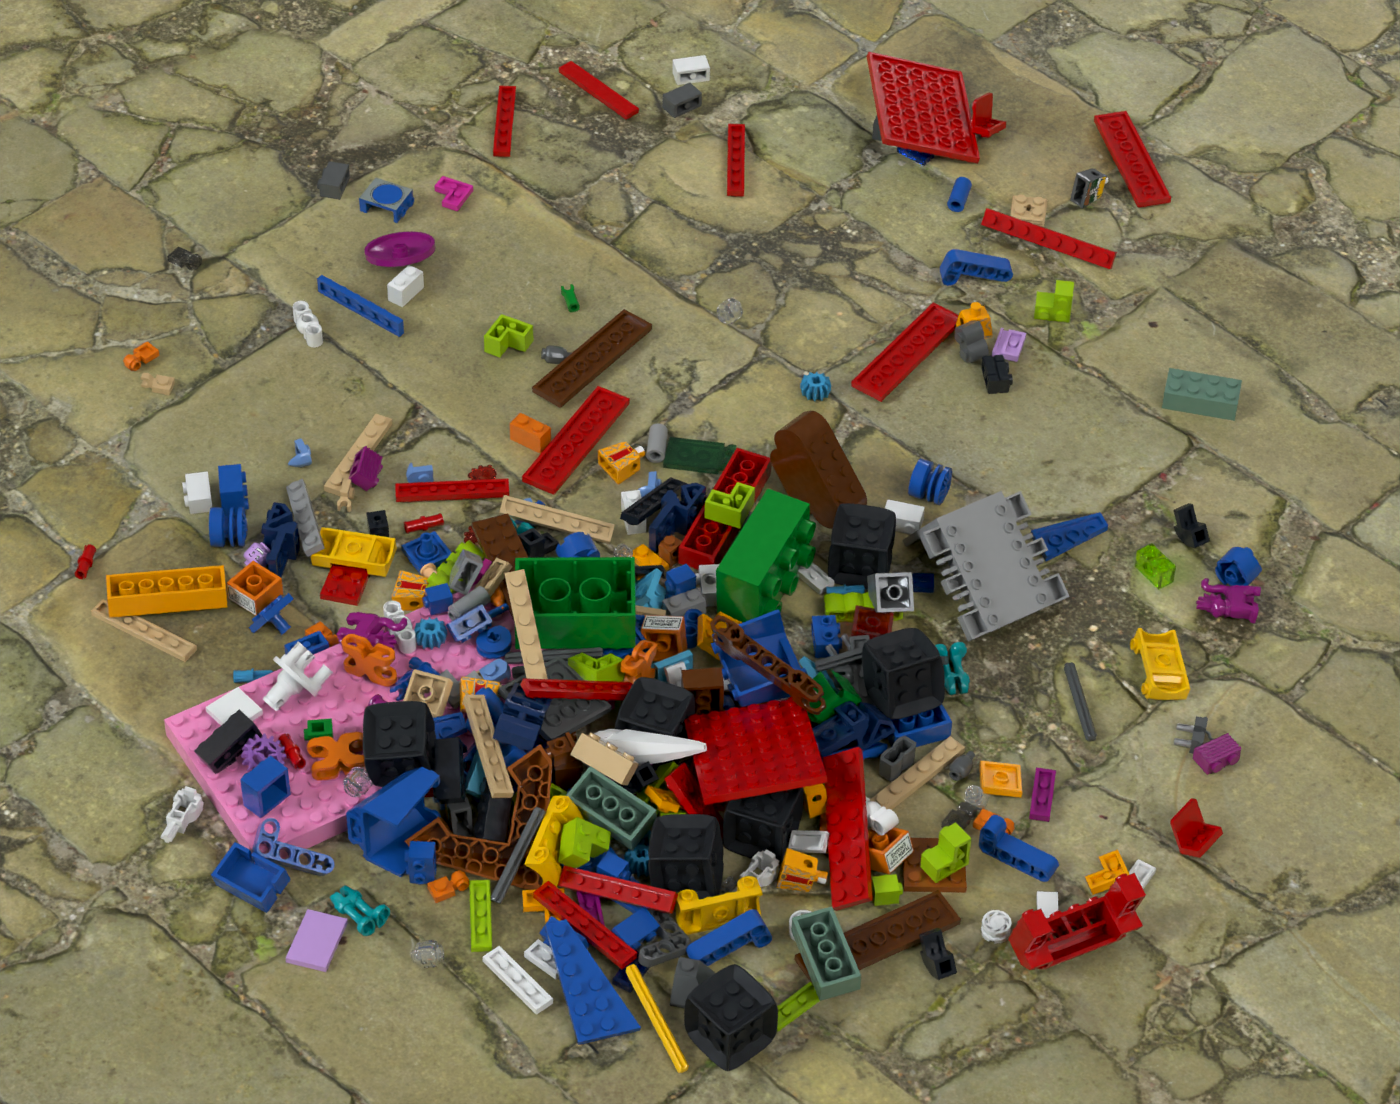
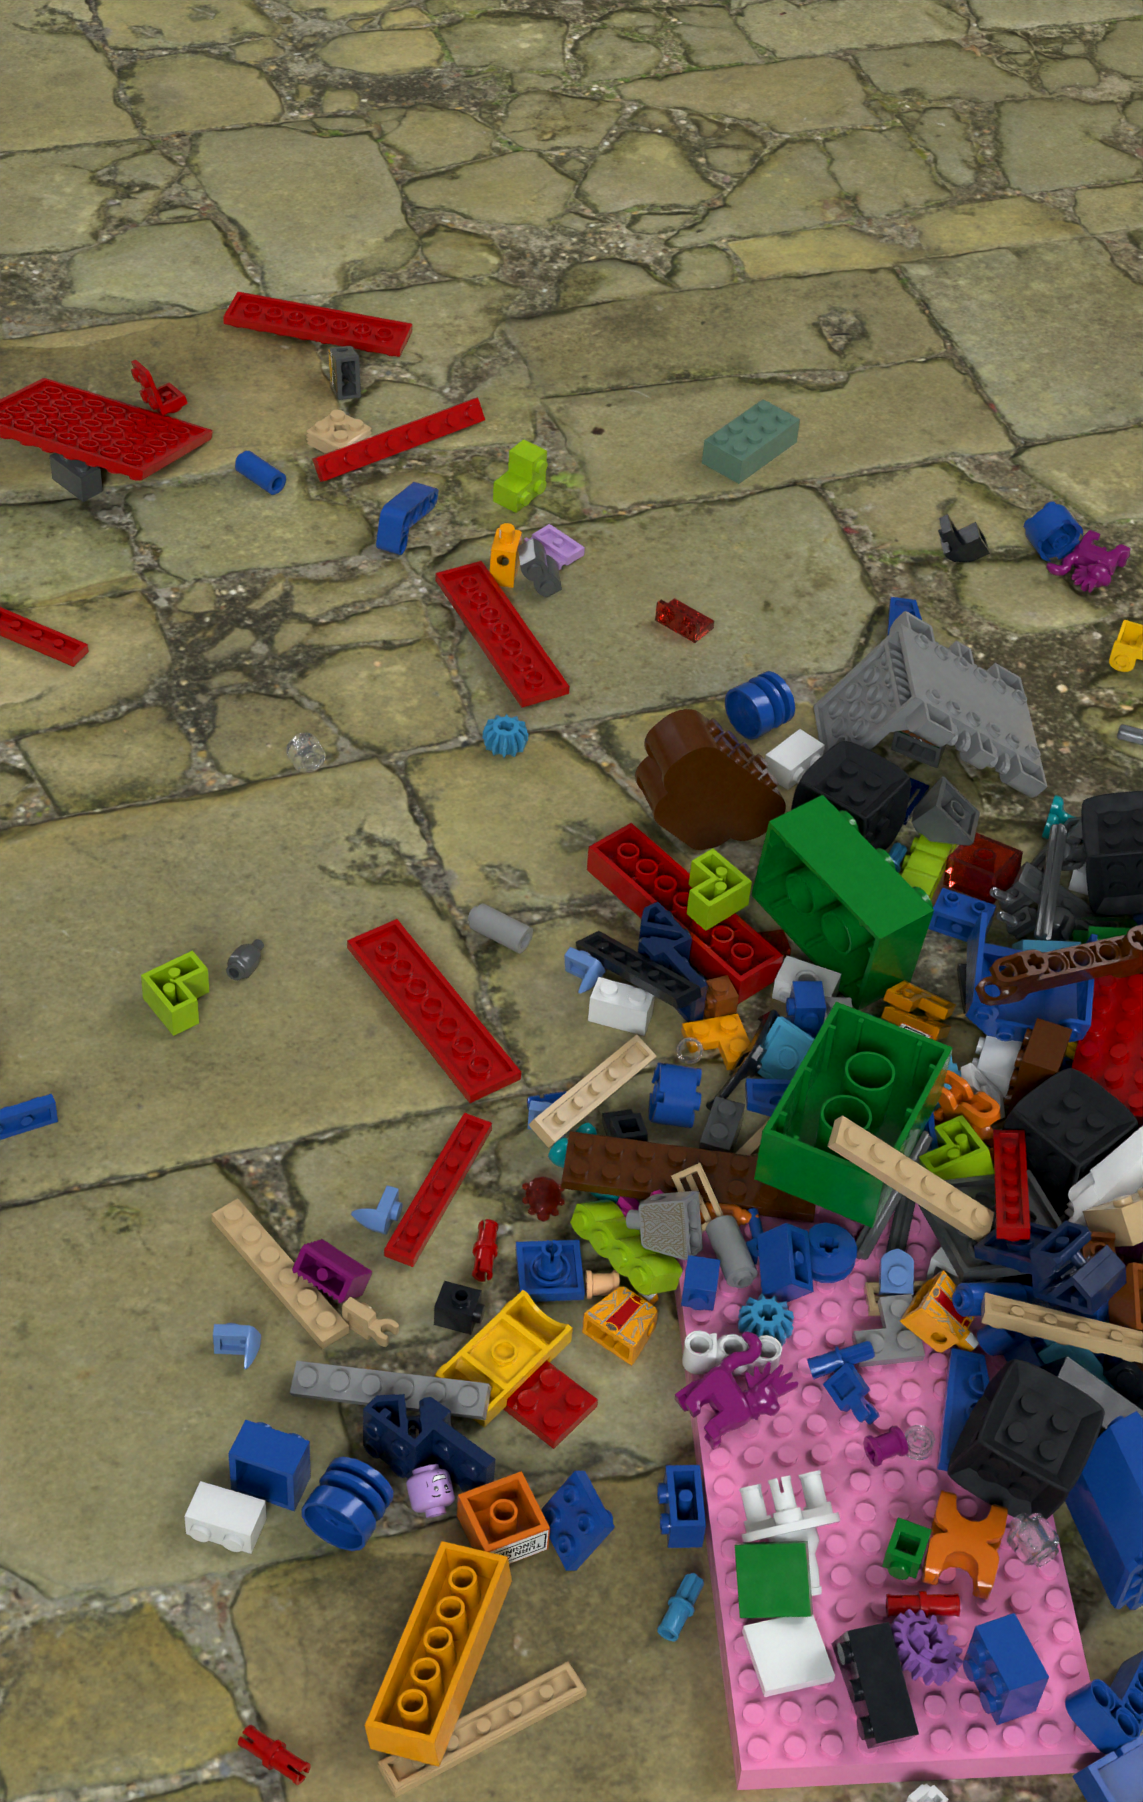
camera: 65 degrees left, 0 degrees up
(263, 682) = (773, 1579): none -> green tile
(327, 633) = (637, 1479): orange plate -> none
(369, 660) = (797, 1417): orange piece -> none
(422, 683) = (922, 1379): tan brick -> none
(482, 473) = (425, 1141): clear red piece -> none
(530, 433) = (389, 1050): orange brick -> none
(570, 298) = (141, 898): green bar -> none
(592, 358) = (284, 927): reddish brown plate -> none
(620, 460) = (511, 979): light orange torso -> none
(697, 455) = (551, 897): clear green tile -> none
(919, 157) = (161, 477): clear blue tile -> none
(994, 427) = (683, 619): none -> clear red bracket
(996, 374) = (599, 578): black brick -> none
(1155, 566) = (1004, 593): clear neon green brick -> none

